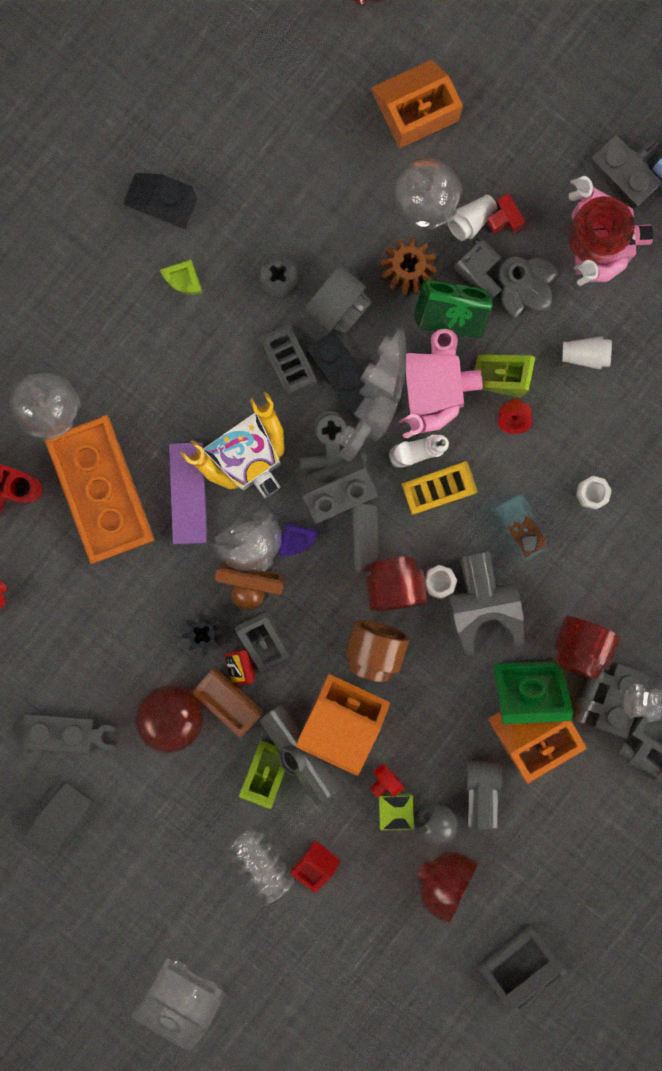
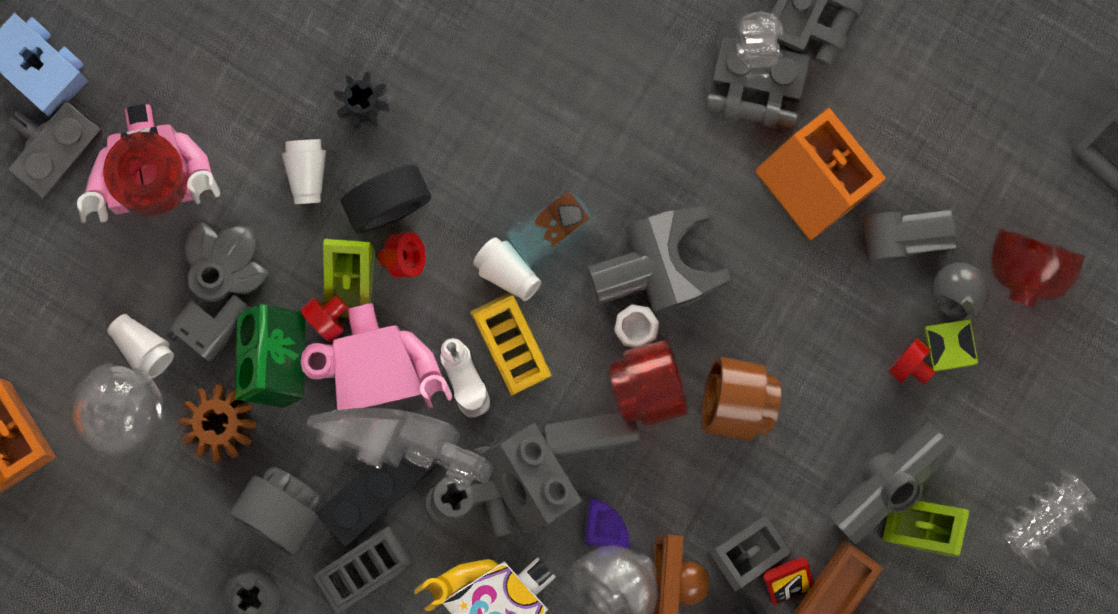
camera: 95 degrees left, 5 degrees down
(315, 866) = (1040, 444): red slope -> none
(343, 724) = (844, 430): orange slope -> none
(476, 352) = (325, 317): none -> red tile
(497, 489) = (505, 268): none -> white cone
(506, 217) = (134, 299): red tile -> none
(532, 692) = (766, 187): green tile -> none
(559, 407) = (385, 198): none -> black tyre
(585, 647) = (698, 125): clear red piece -> none
(593, 492) = (491, 139): white tile -> none
(634, 391) = (368, 90): none -> black gear

